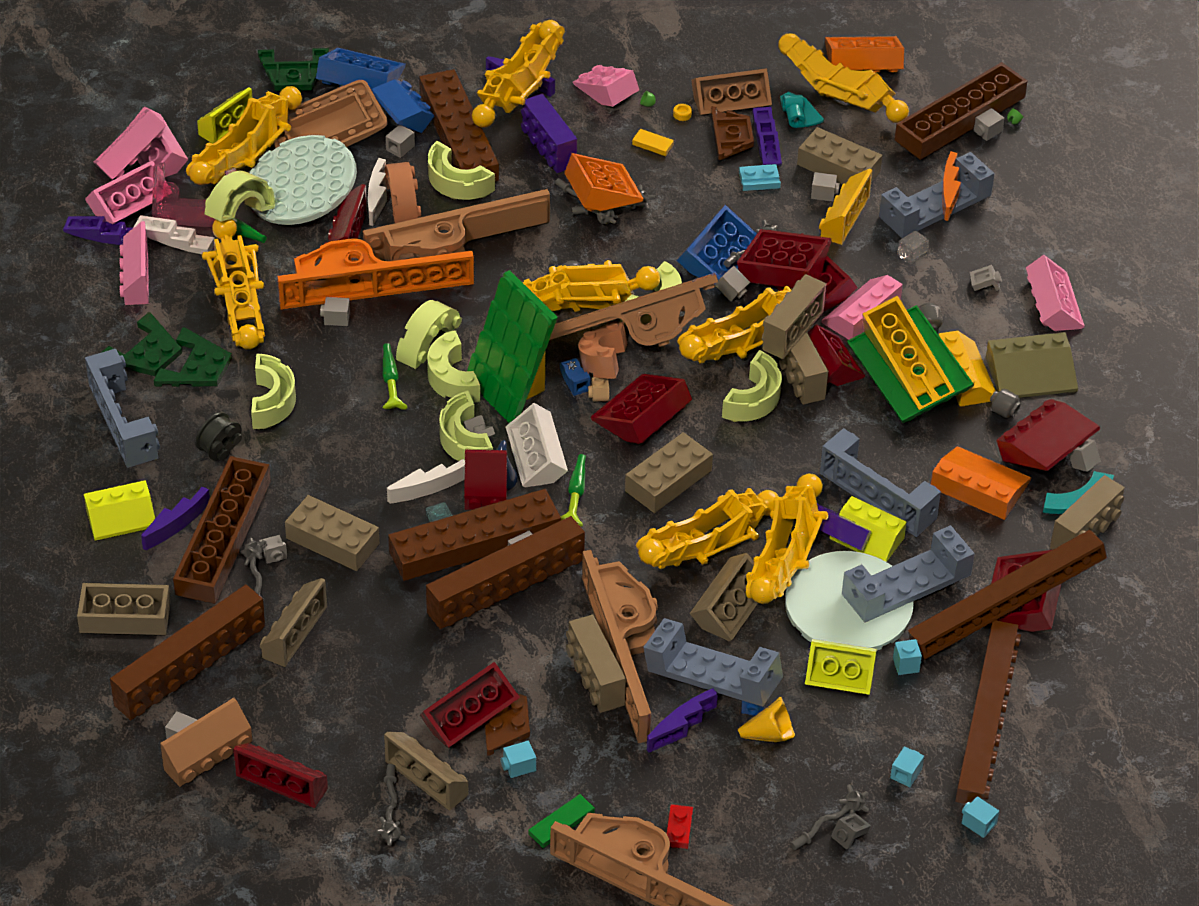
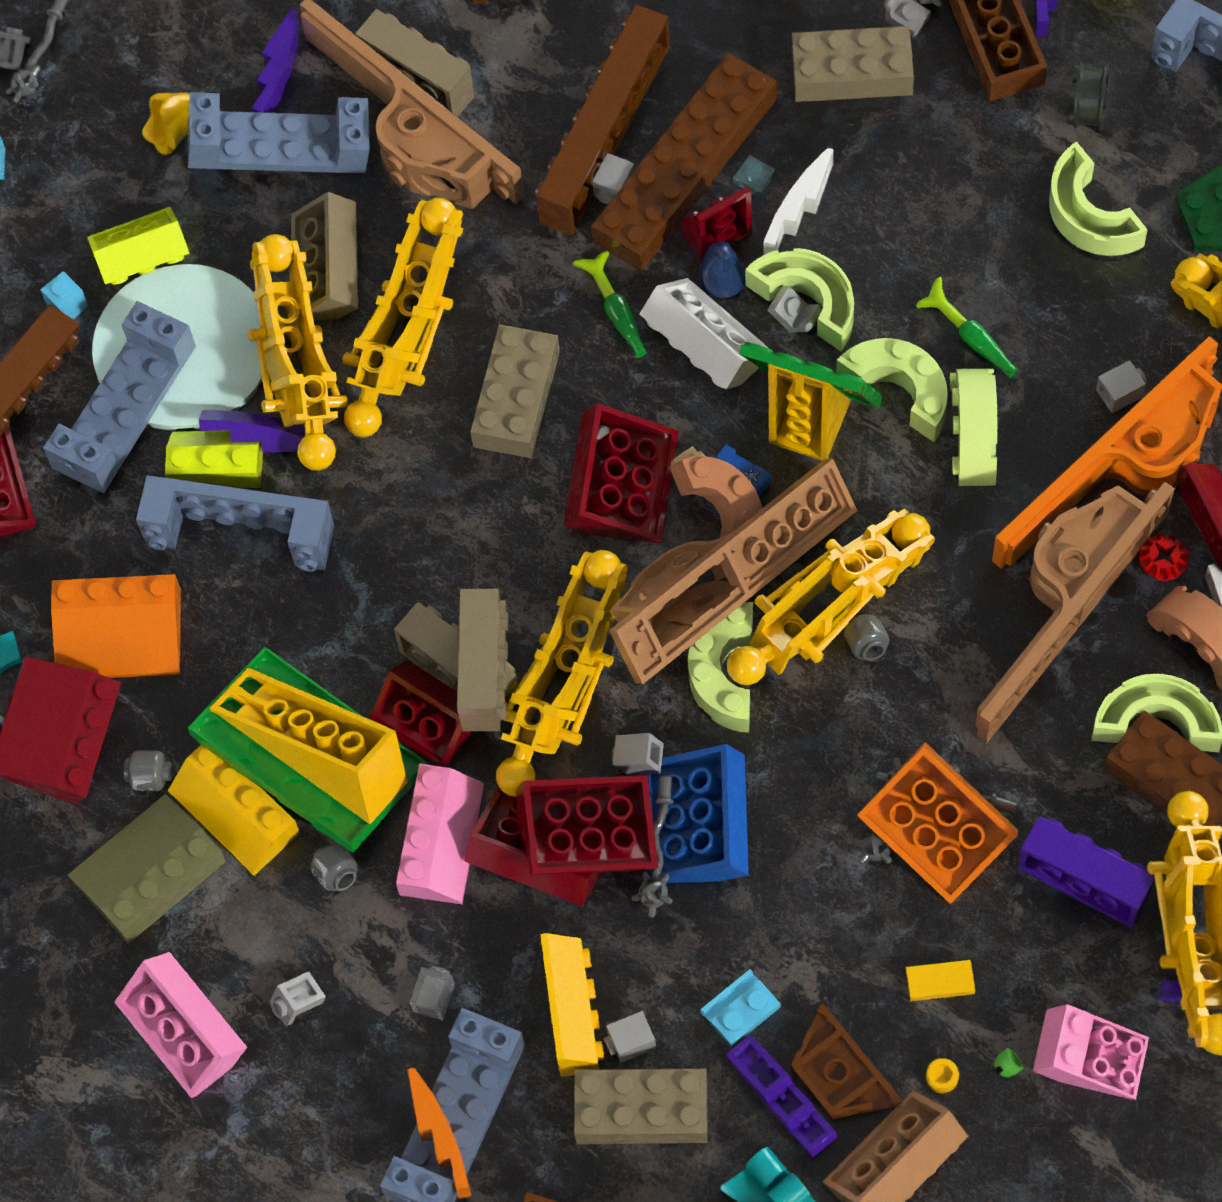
camera: 155 degrees right, 20 degrees up
(759, 400) = (477, 558): yellowish green brick -> none

